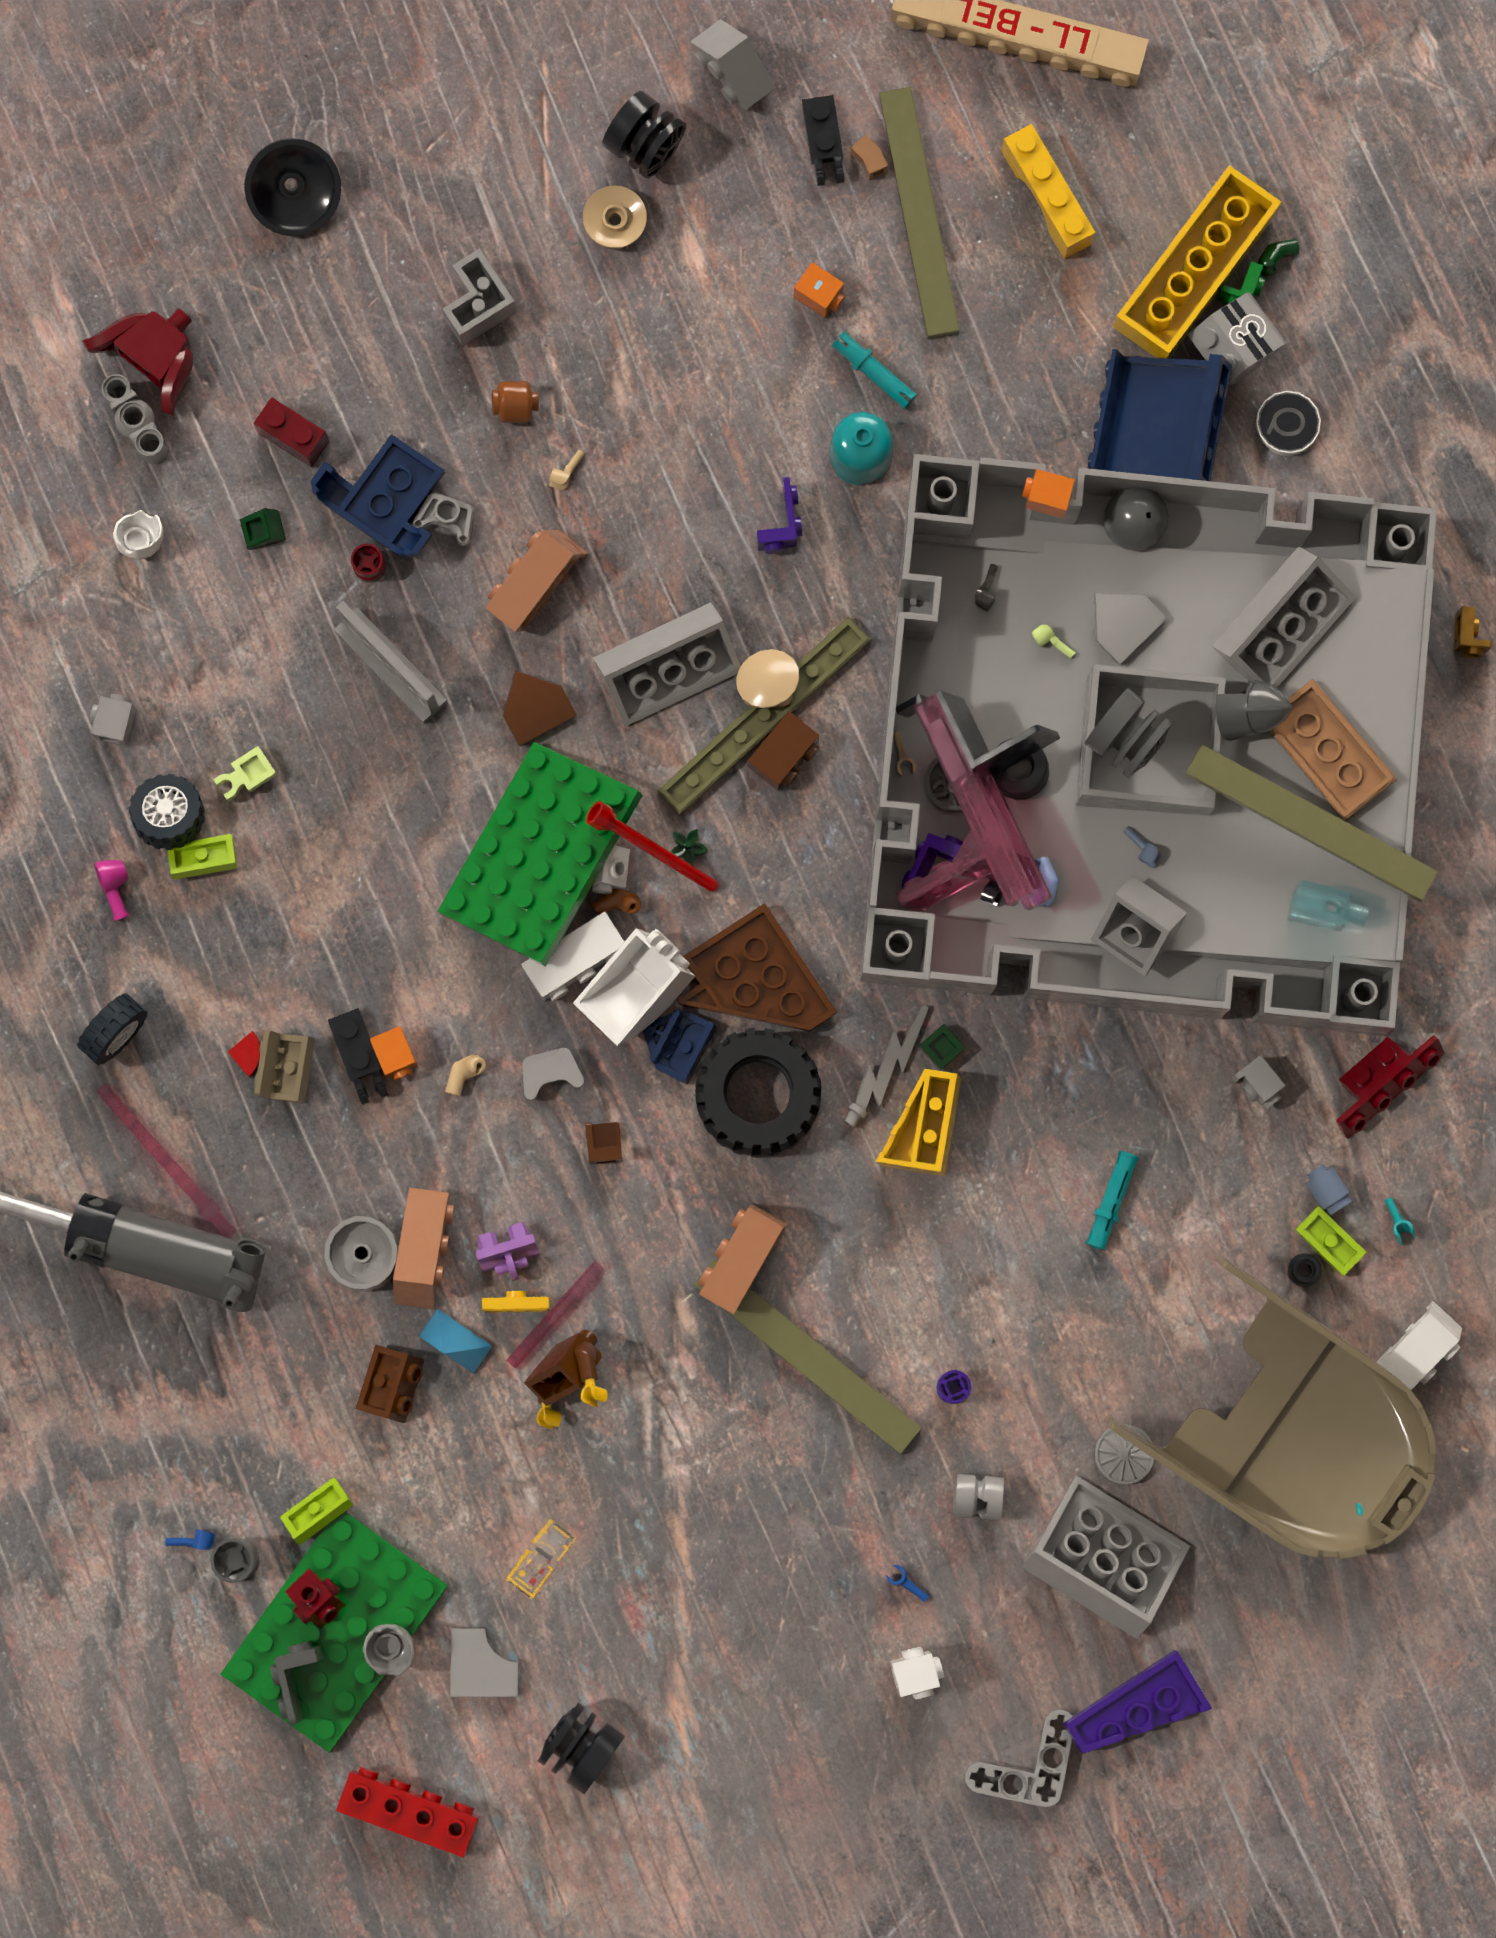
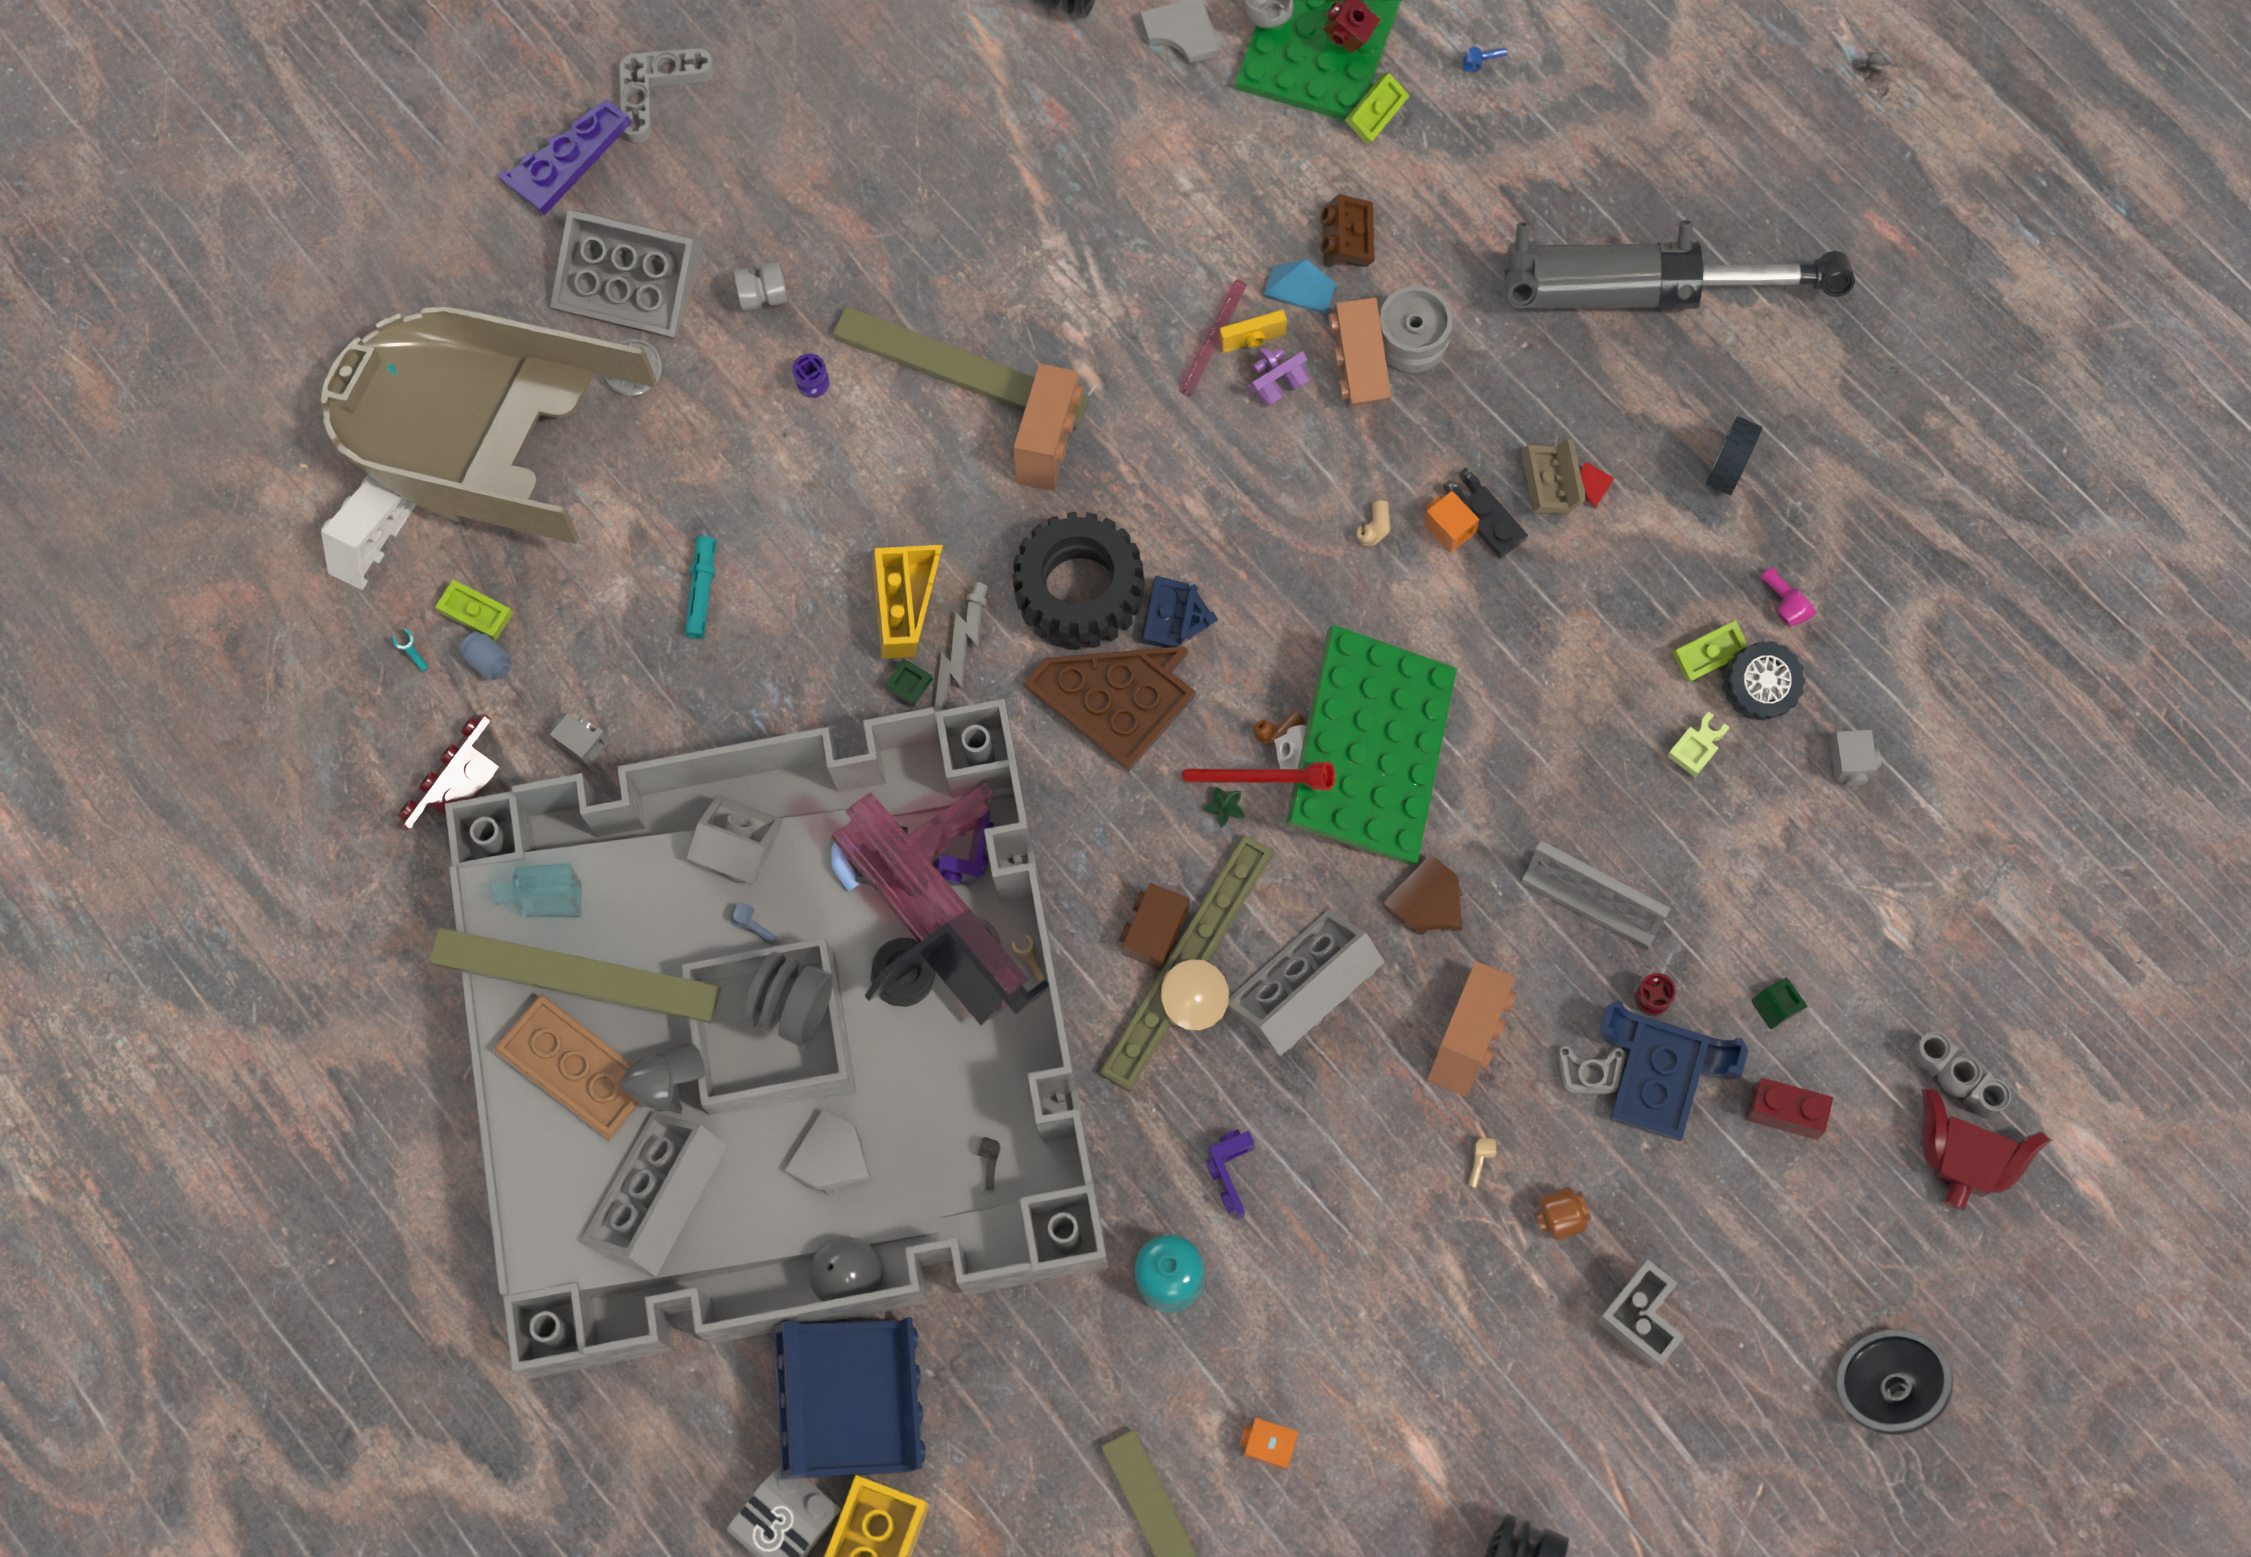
camera: 170 degrees right, 10 degrees down
(138, 535) = (1906, 951): white hair -> none
(207, 1208) = (1577, 335): clear pink bar -> none
(234, 1560) = (1436, 44): dark grey wheel -> none
(540, 1558) = (1154, 127): clear slope -> none
(549, 1068) = (1292, 551): light grey piece -> none
(564, 1372) = (1183, 276): reddish brown torso -> none
(575, 958) = (1297, 665): white brick -> none
(603, 1143) = (1217, 498): reddish brown panel -> none
(613, 202) = (1543, 1453): tan dish -> none
(635, 985) = (1233, 645): white piece -> none
(874, 370) = (1179, 1370): teal pin -> none
(908, 1585) = (812, 203): blue hand -> none
(916, 1673) = (778, 119): white brick -> none
(1044, 634) = (913, 1125): yellowish green hand -> none
(1048, 493) = (944, 1243): orange brick -> none
(1287, 423) = (707, 1450): black tile -> none
(1315, 1270) = (490, 570): black plate -> none
(1465, 630) = (459, 1271): pearl gold bracket -> none

